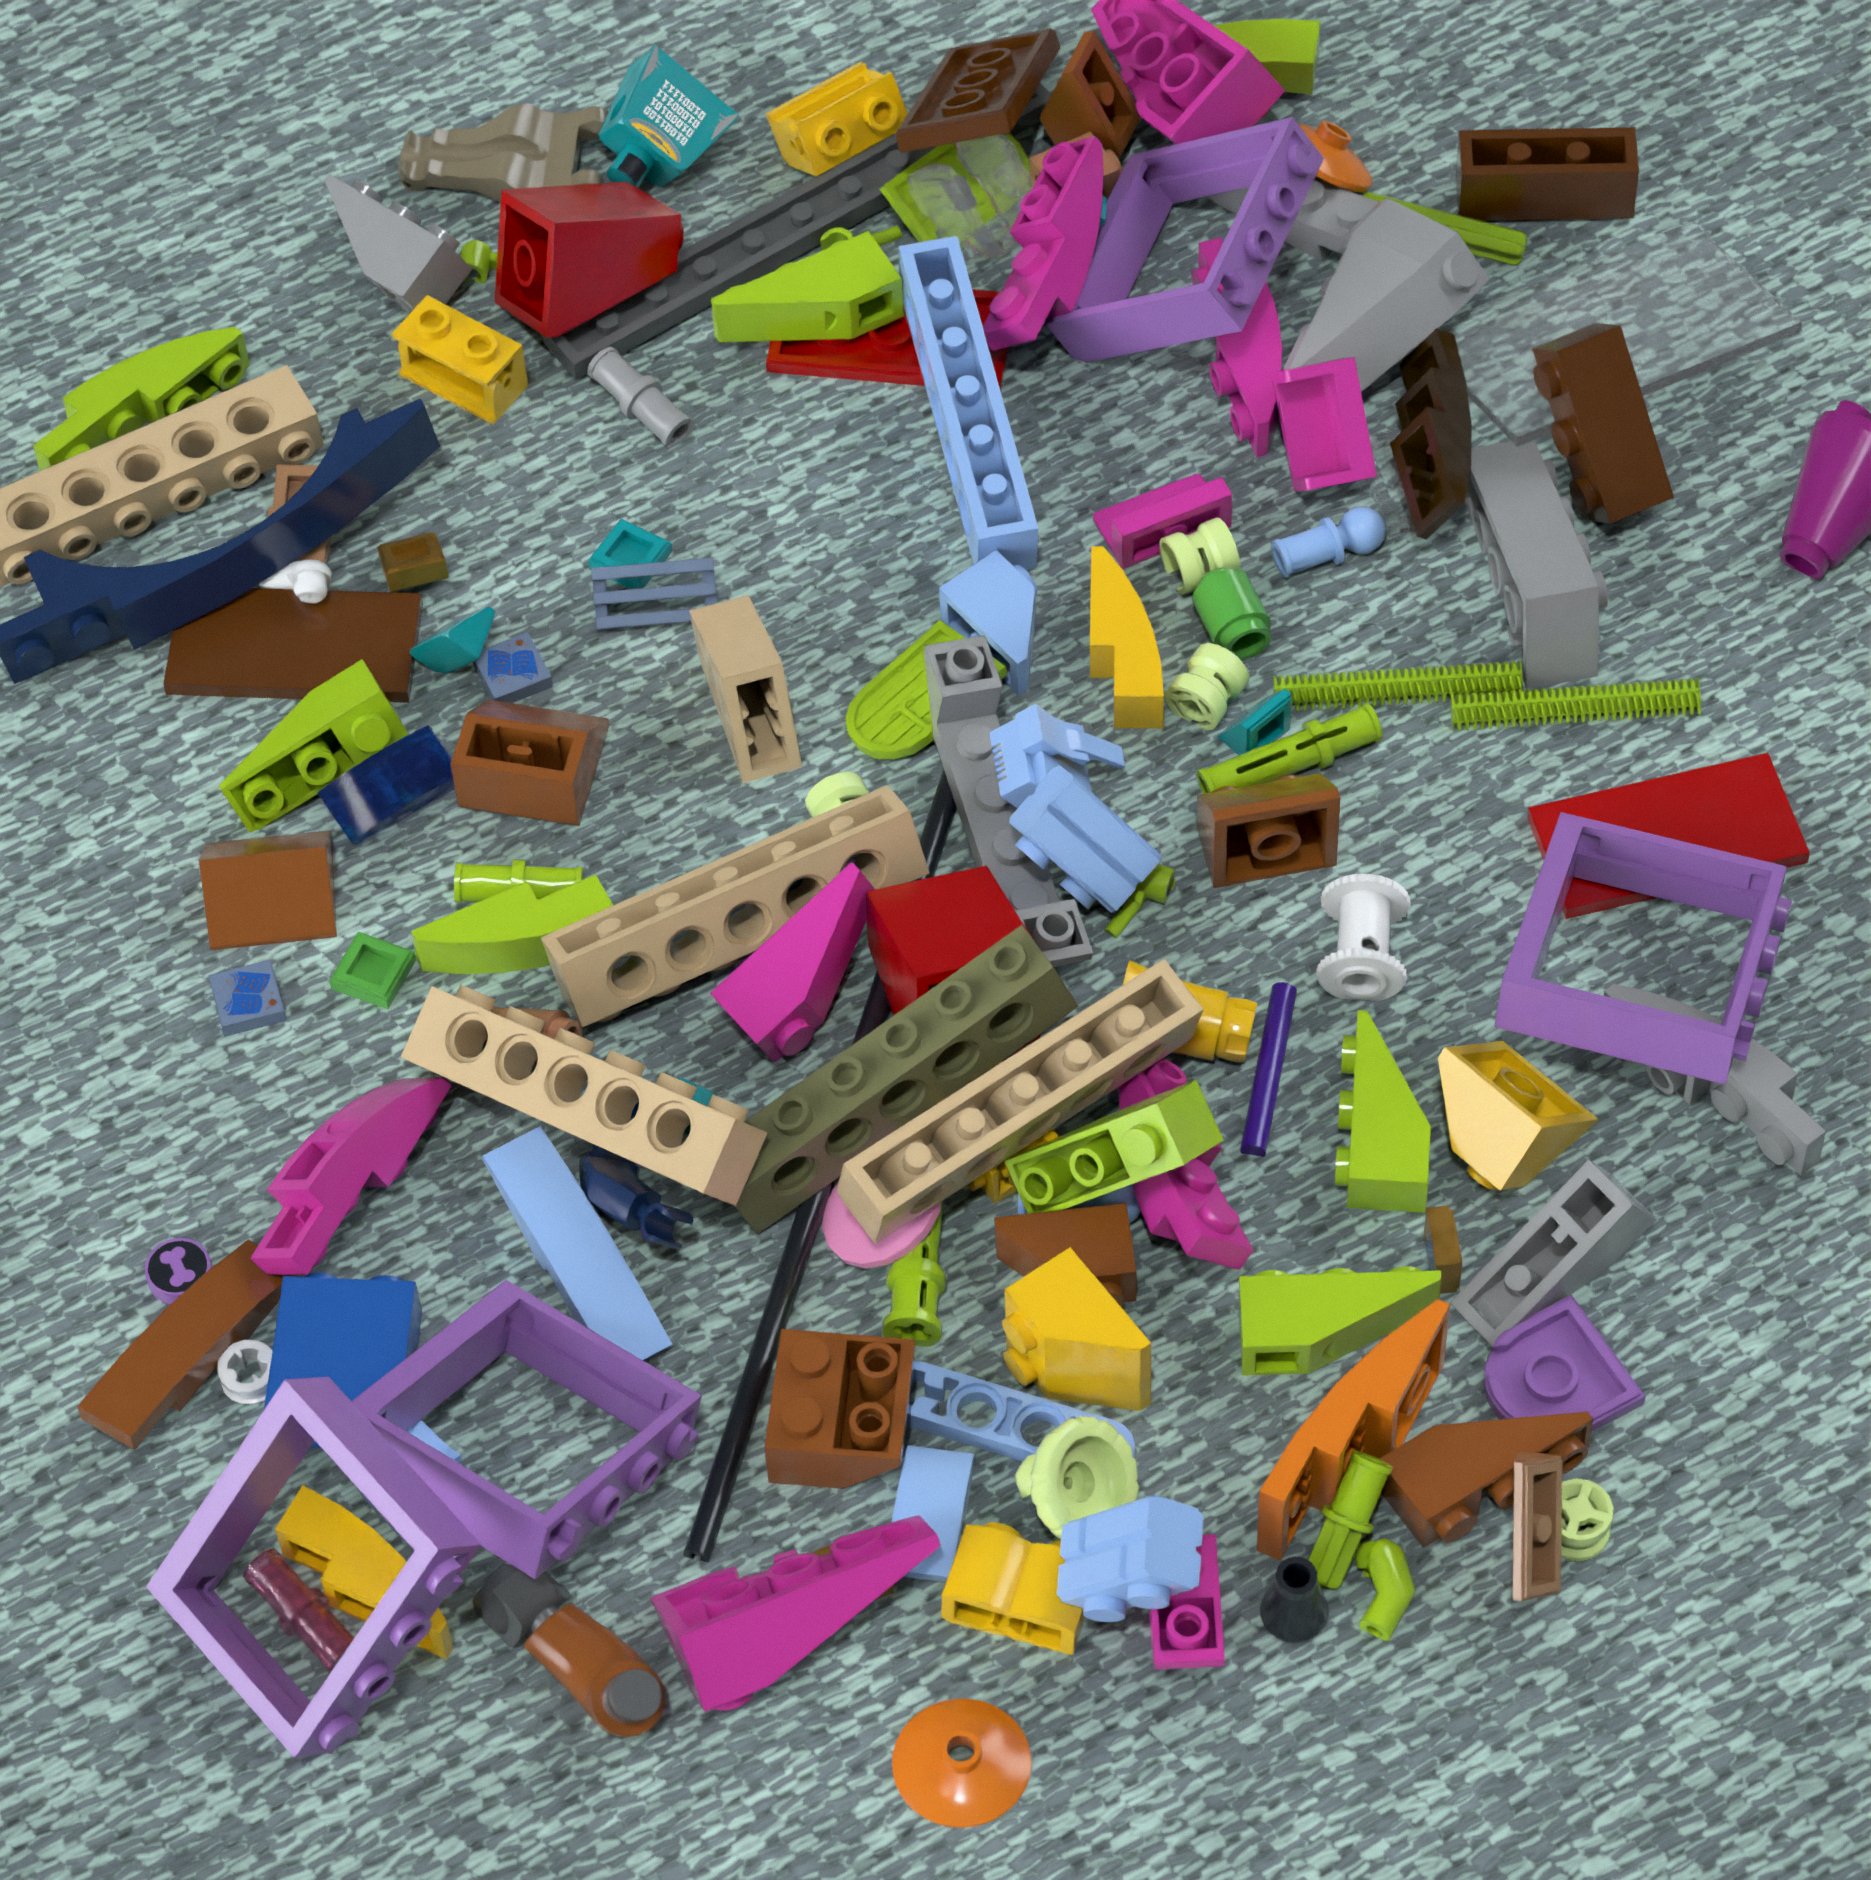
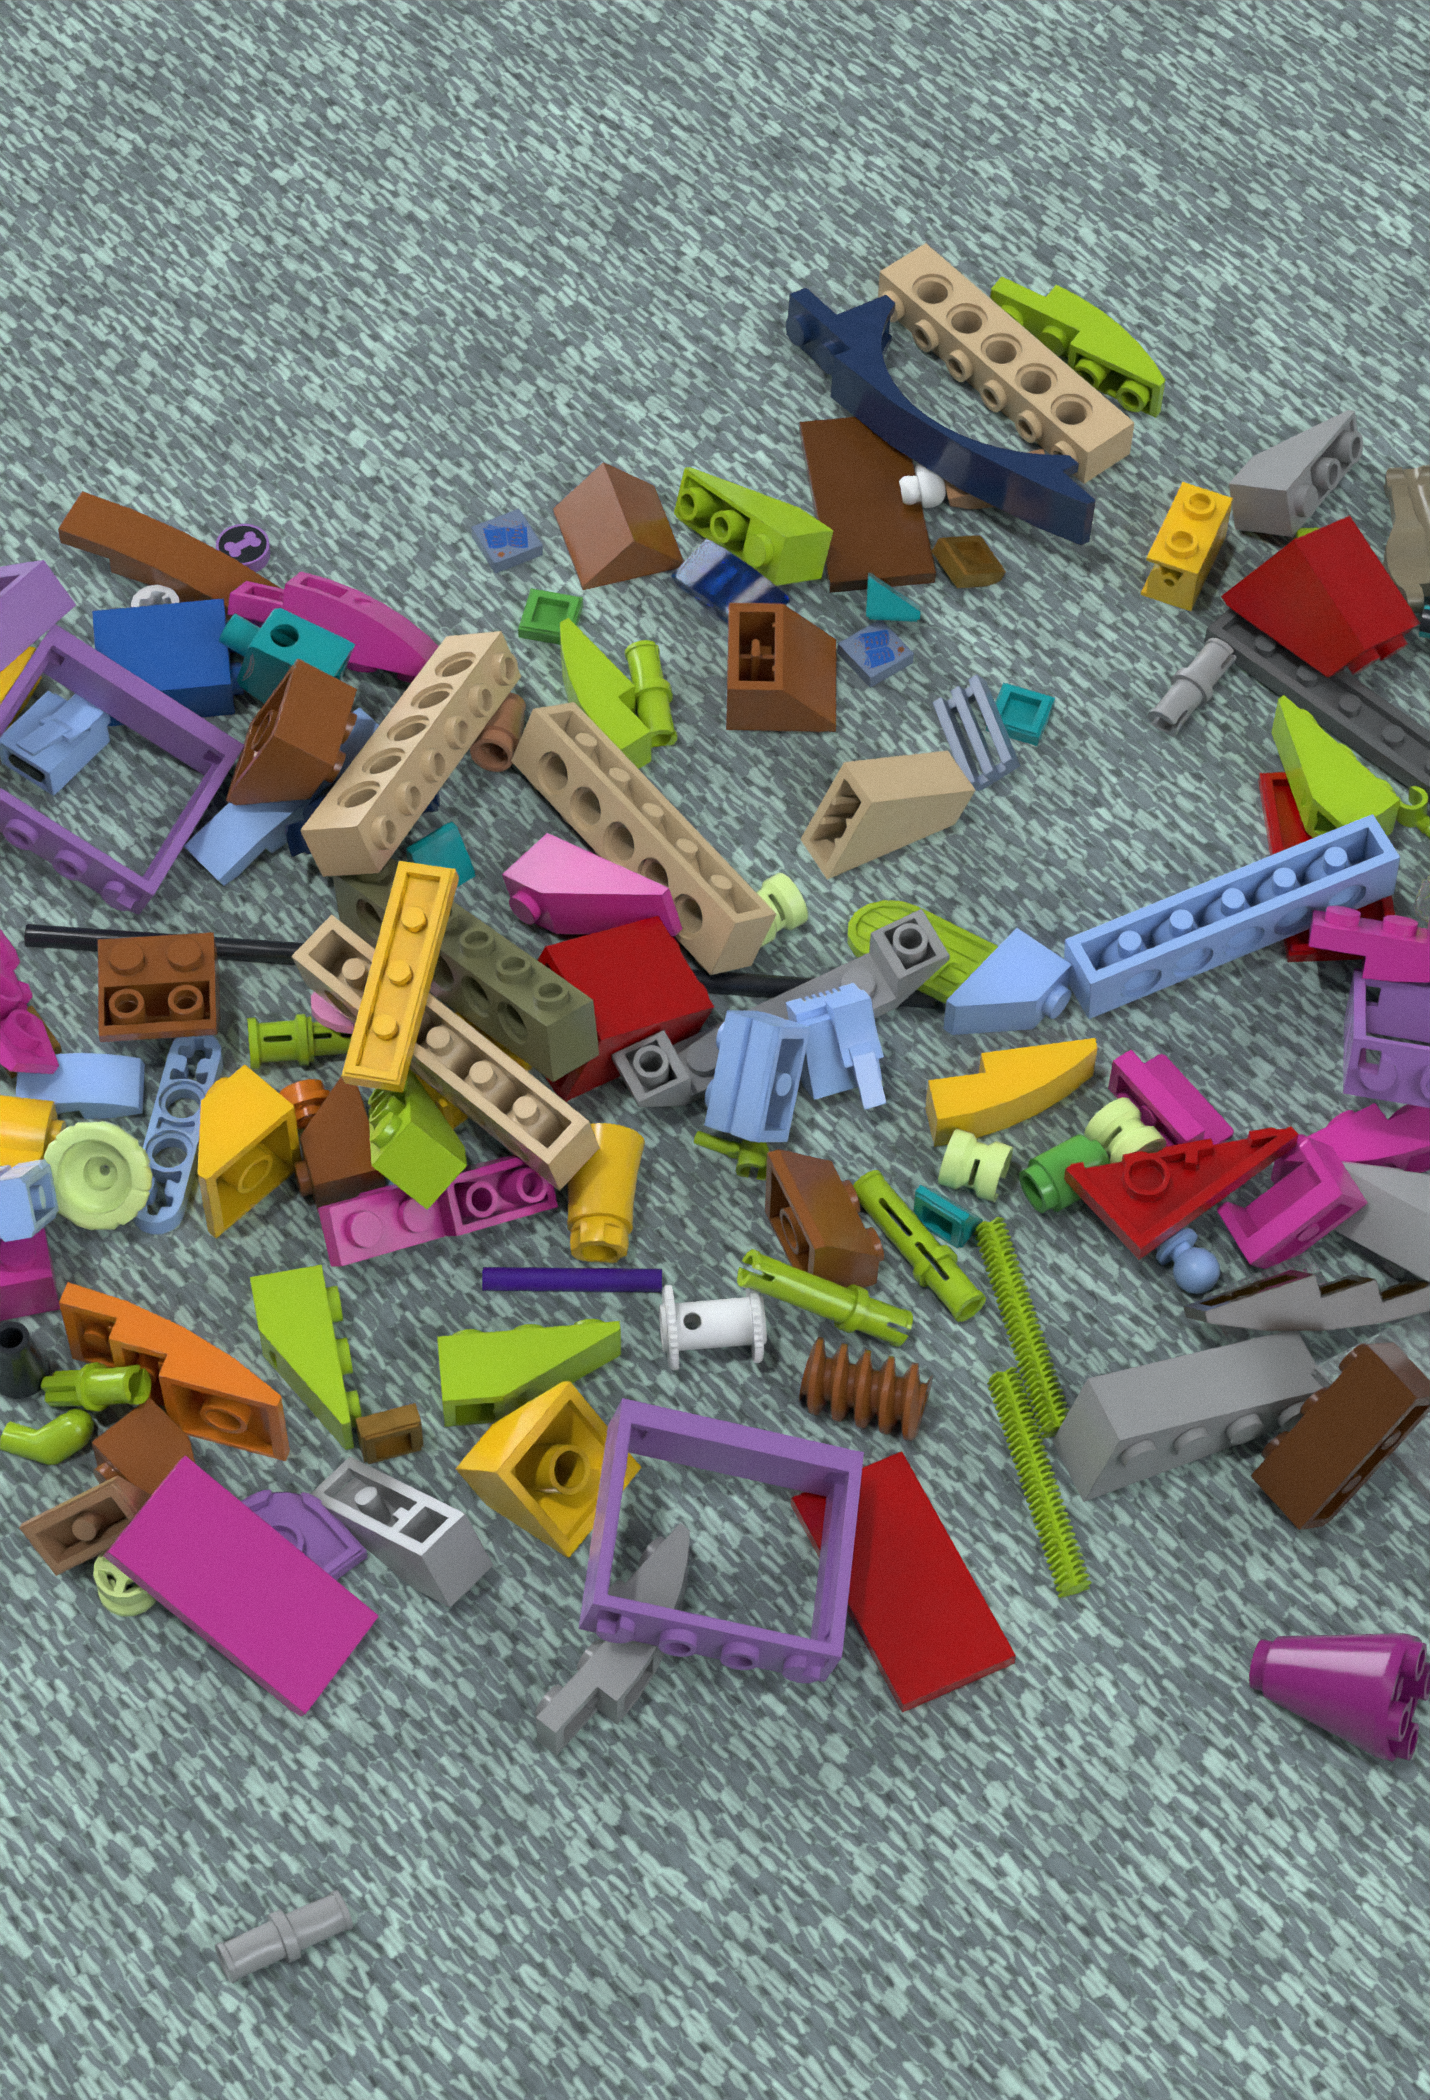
camera: 75 degrees right, 0 degrees up
(413, 1207) = (277, 646): none -> teal torso
(539, 1212) = (295, 738): none -> dark orange slope
(948, 1101) = (400, 976): none -> yellow tile
(999, 1275) = (306, 1097): none -> orange plate
(1288, 519) = (1164, 1191): none -> red wing
(1365, 820) = (847, 1307): none -> lime pin
(1458, 823) = (864, 1390): none -> dark orange piece
(1622, 1392) = (241, 1586): none -> dark pink tile

